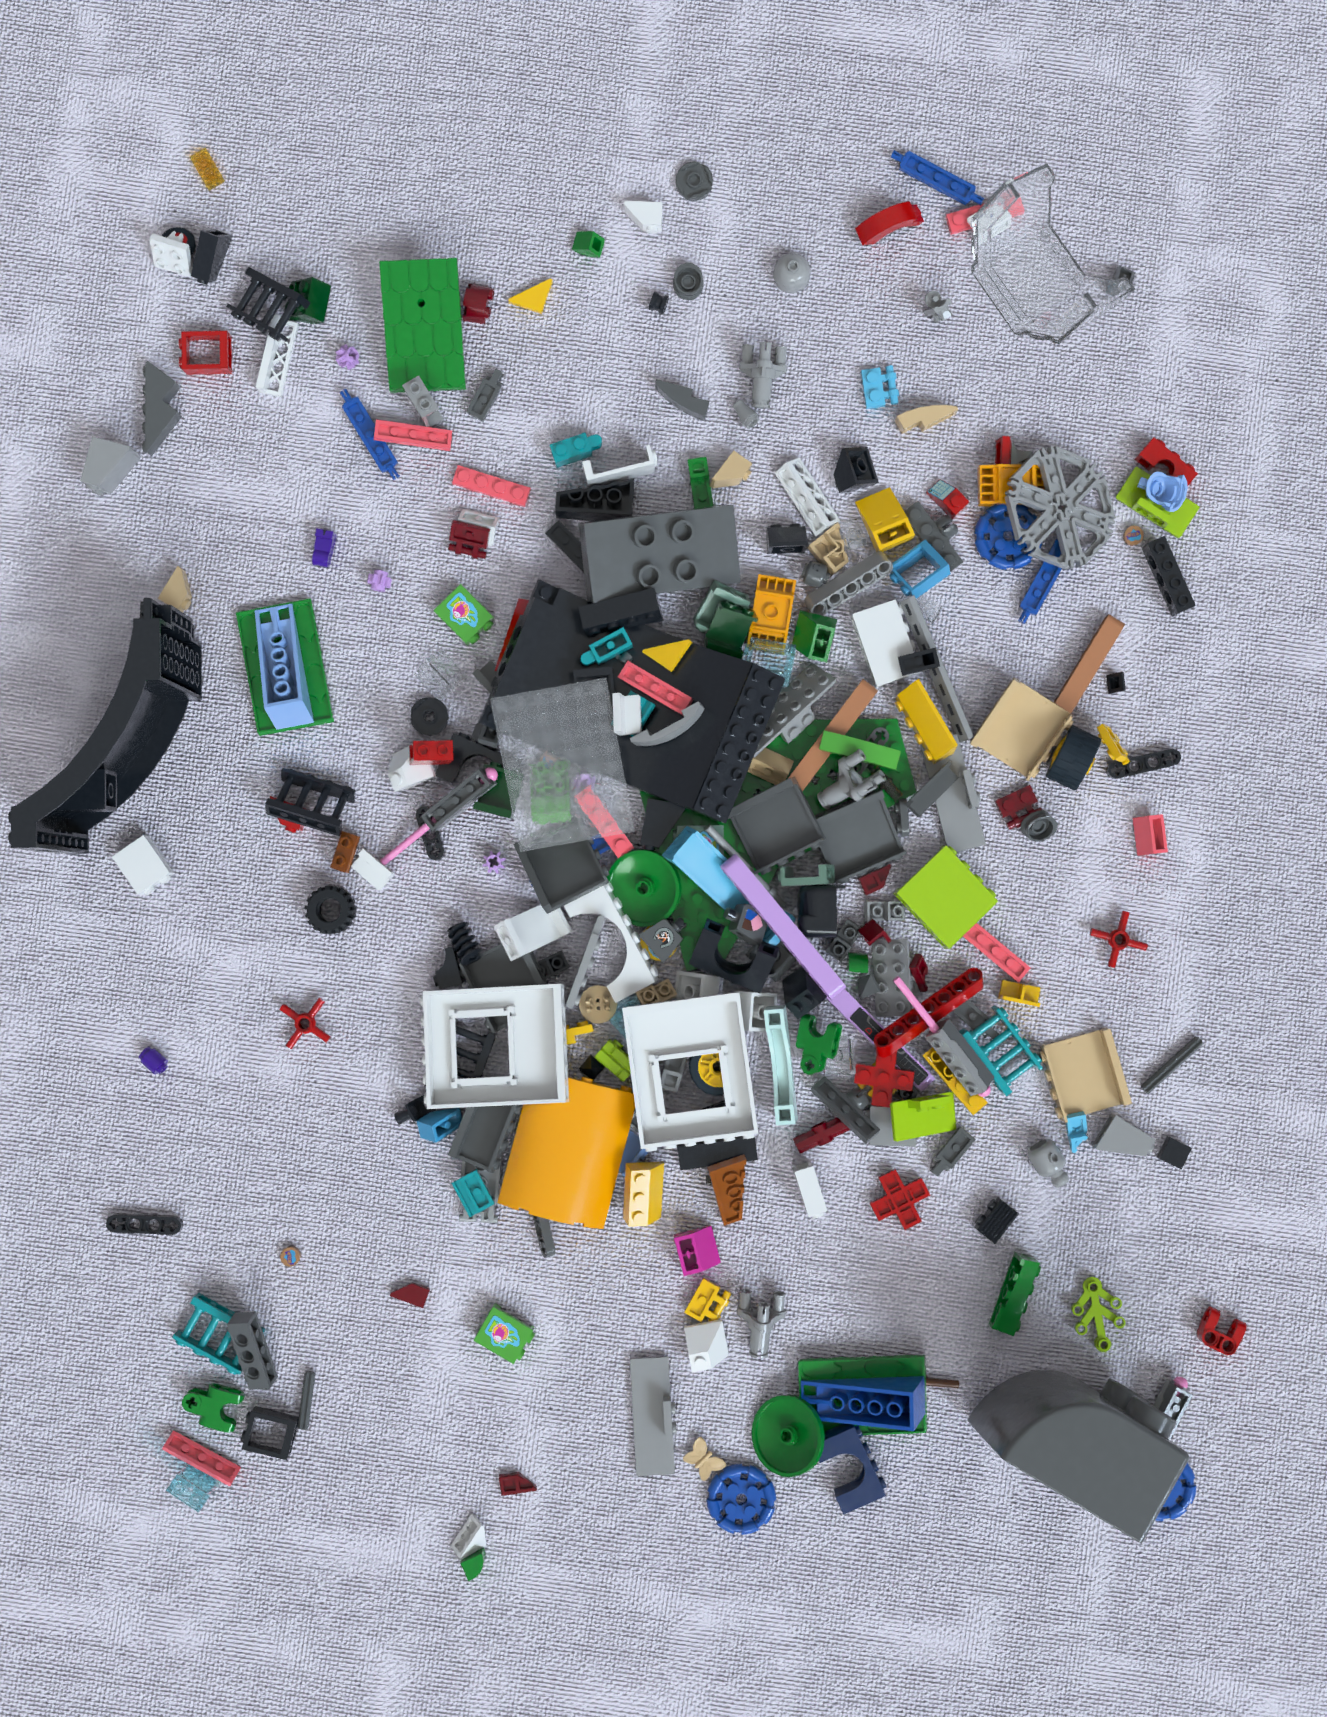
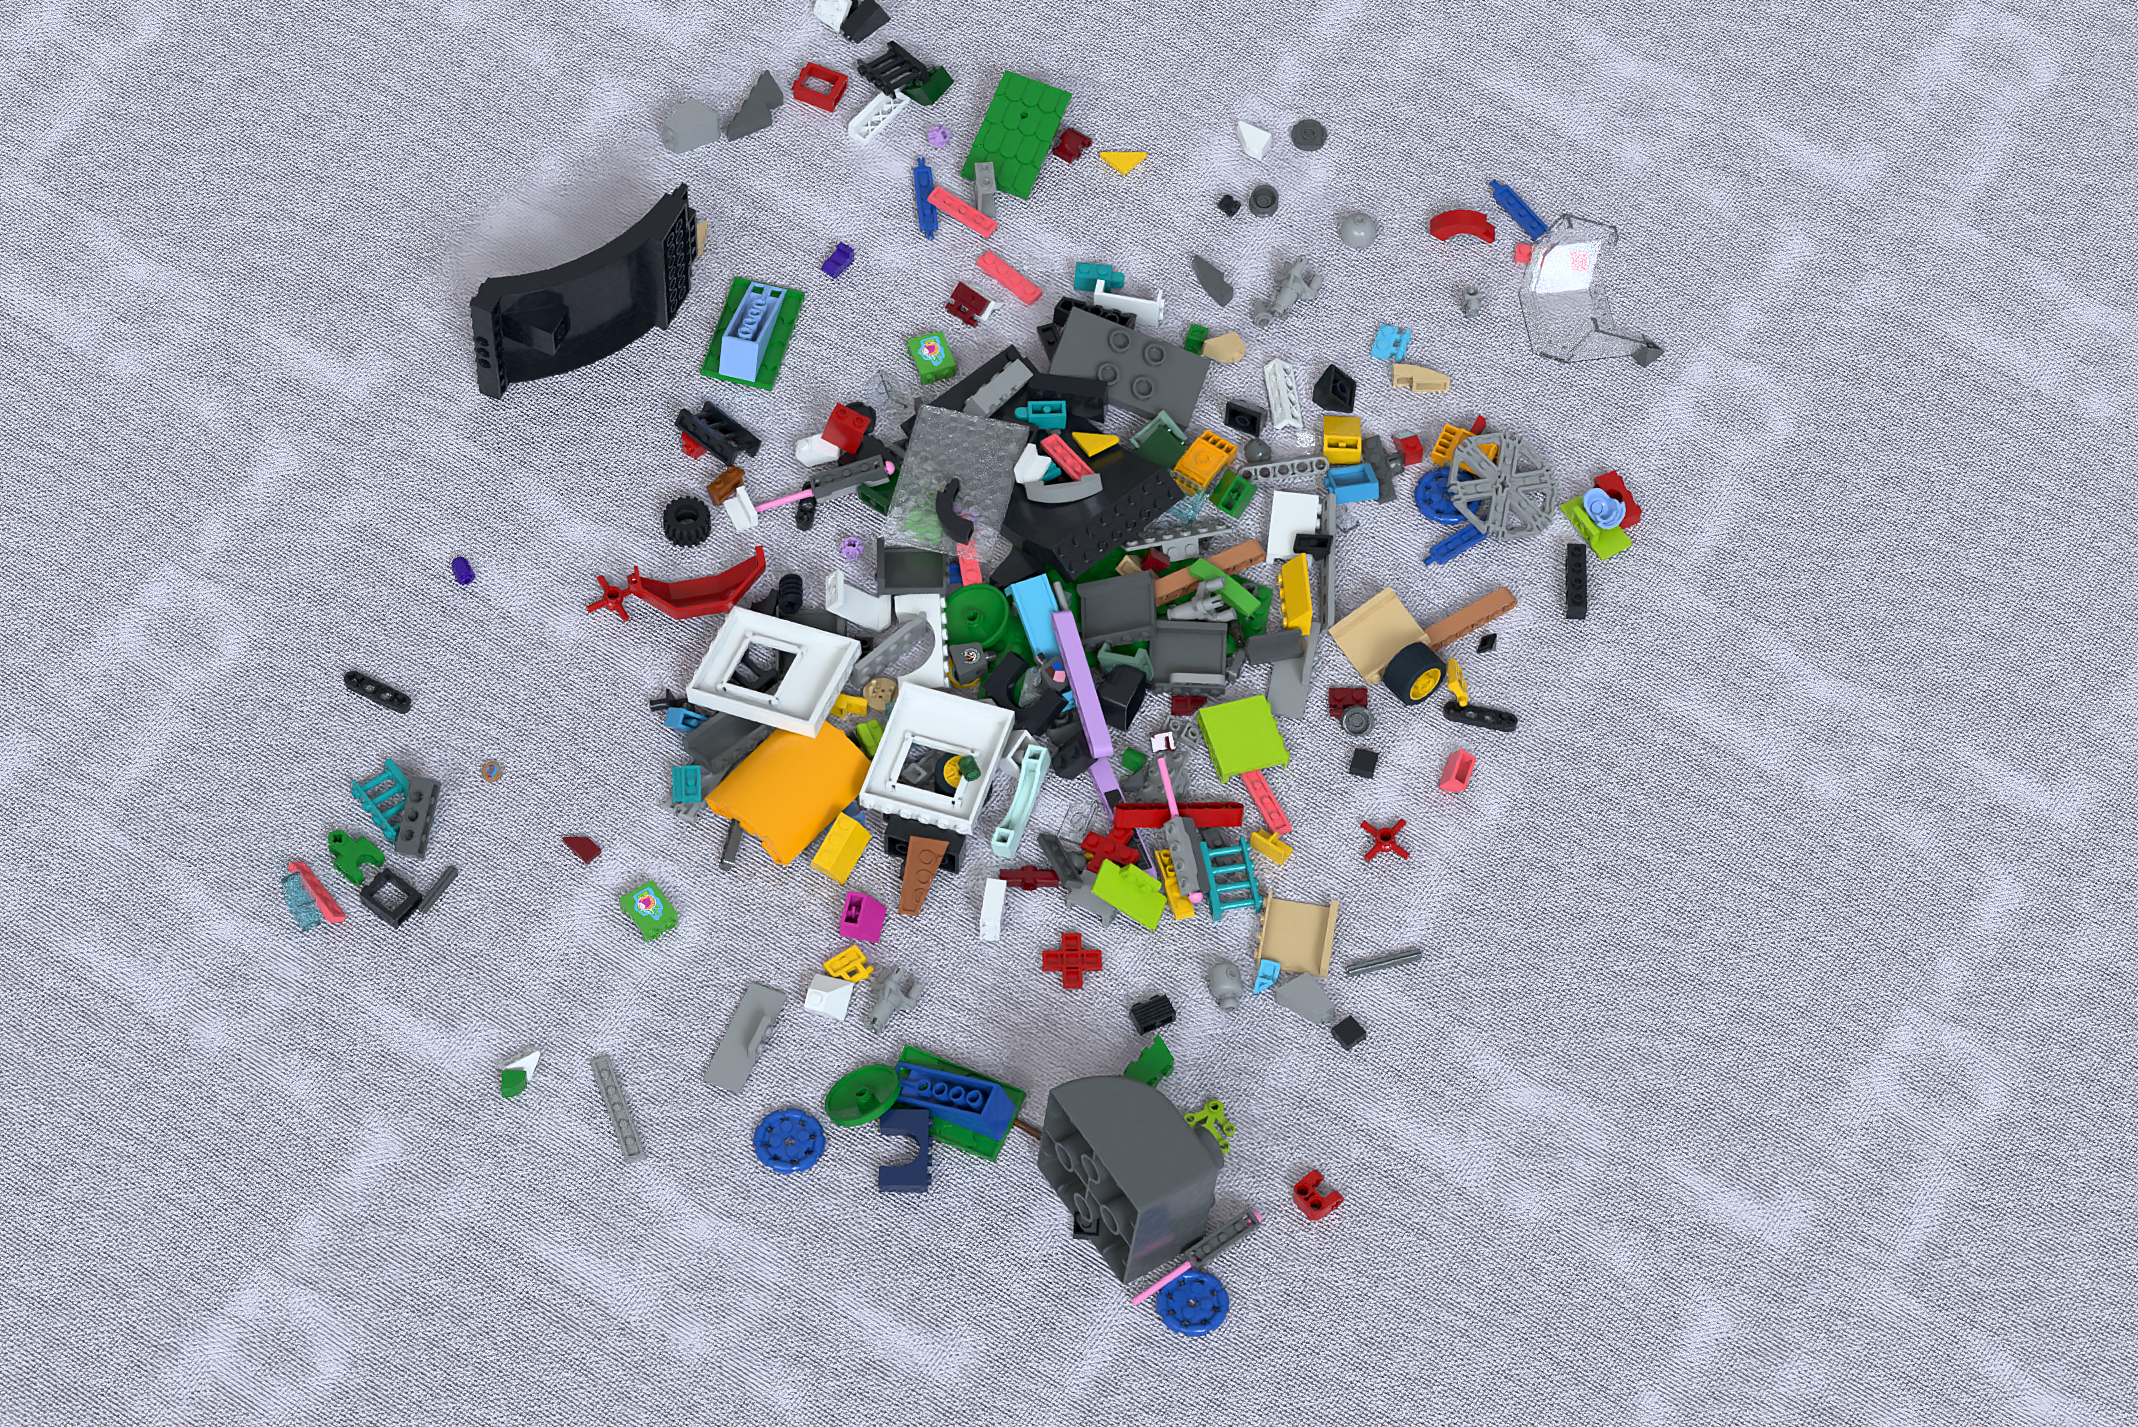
camera: 20 degrees right, 30 degrees down
(143, 865) = (543, 423): white brick -> none
(379, 580) = (872, 303): lavender gear -> none
(379, 991) = (700, 595): none -> red panel
(485, 396) = (1041, 211): dark grey hinge -> none
(515, 1483) = (586, 1039): dark red tile -> none
(554, 645) = (999, 390): none -> light grey wedge
(577, 814) = (953, 525): none -> black arch
(577, 1539) = (617, 1109): none -> light grey tile
(588, 244) = (1192, 141): green brick -> none
(702, 1460) = (771, 1092): tan piece -> none
(730, 1079) = (969, 768): none -> clear green beam
(740, 951) = (1030, 690): none -> clear slope
(781, 749) = (1155, 560): none -> dark red panel
(815, 1045) = (1063, 801): green piece -> none
(830, 550) = (1281, 440): tan slope -> none
(845, 939) = (1134, 738): dark grey slope -> none
(877, 856) = (1197, 679): none -> light grey beam
(919, 969) = (1188, 786): dark red tile -> none
(952, 1151) = (1141, 943): dark grey hinge -> none
(1062, 865) = (1363, 763): none -> black piece
(1133, 535) = (1560, 541): medium nougat tile -> none

